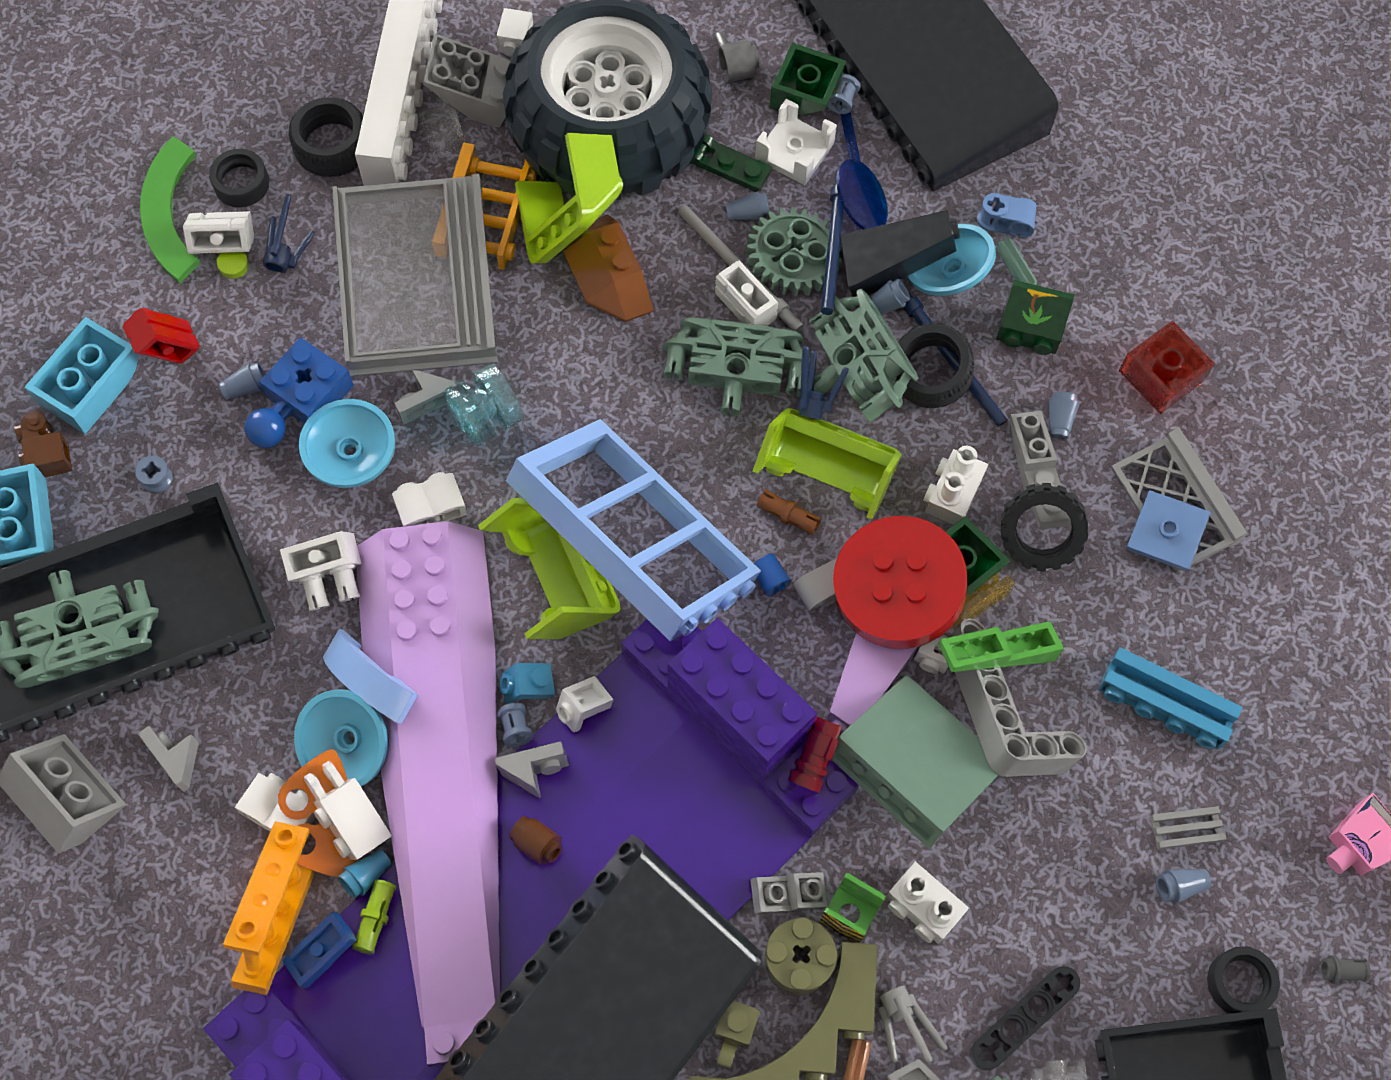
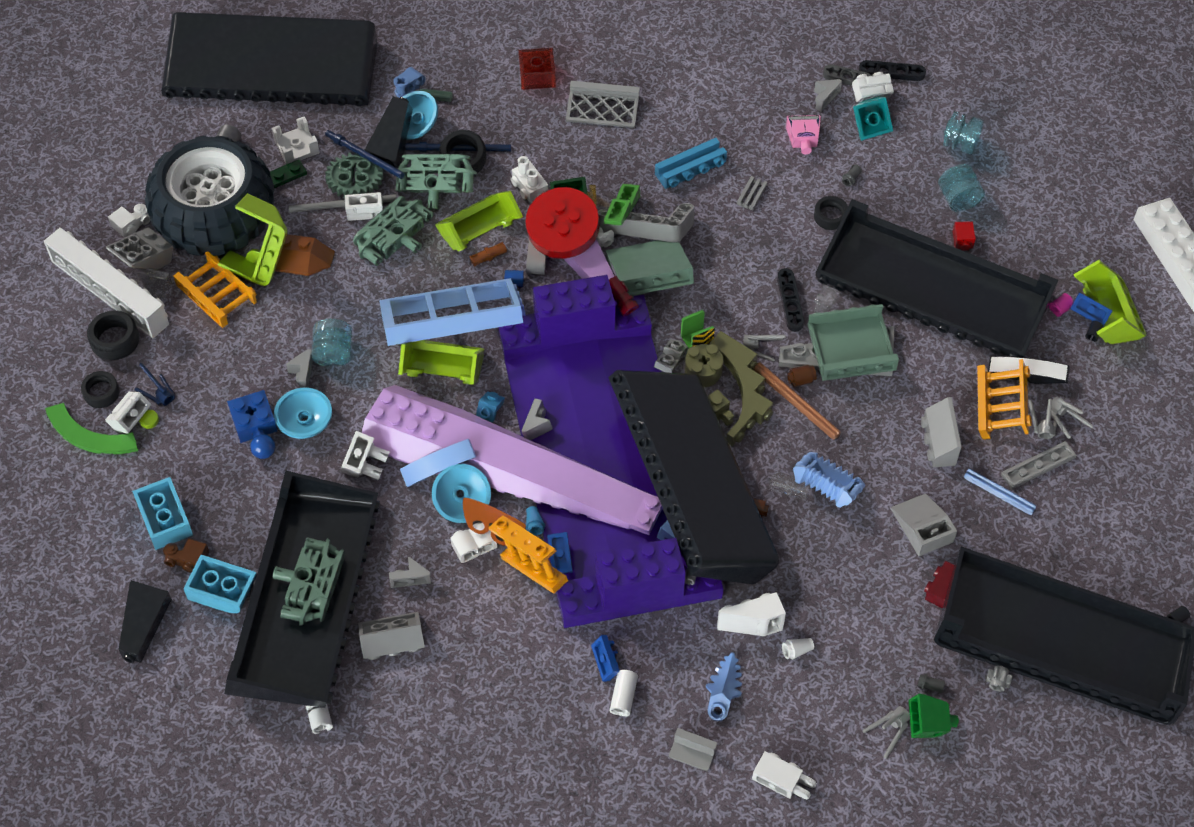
camera: 55 degrees left, 10 degrees down
(159, 480) = (247, 516): sand blue wheel -> none
(160, 336) = (171, 464): red brick -> none
(243, 381) = (225, 446): sand blue cone -> none
(347, 814) = (501, 503): white hinge -> none
(374, 917) = (558, 524): lime pin -> none
(413, 276) = (234, 332): piece -> none
(429, 501) = (362, 397): white brick -> none
(515, 725) = (508, 420): sand blue bush -> none
(536, 840) = (574, 435): reddish brown brick -> none
(581, 702) = (519, 386): white bracket -> none
(748, 207) = (314, 180): sand blue cone -> none
(806, 79) = (266, 114): dark green slope -> none
(812, 402) = (441, 211): dark blue plant -> none
(844, 94) = (287, 105): sand blue bush -> none
(858, 186) = (338, 129): clear blue piece -> none
(891, 297) = (412, 147): sand blue cone -> none
(925, 904) = (715, 303): white brick -> none
(1034, 317) = (471, 101): dark green slope -> none
(1037, 463) = (543, 146): light grey slope -> none
(1045, 558) = (593, 153): black tyre -> none
(1062, 414) = (526, 122): sand blue cone -> none
(1168, 531) = (614, 116): medium blue plate -> none
(1182, 884) = (774, 209): sand blue cone -> none

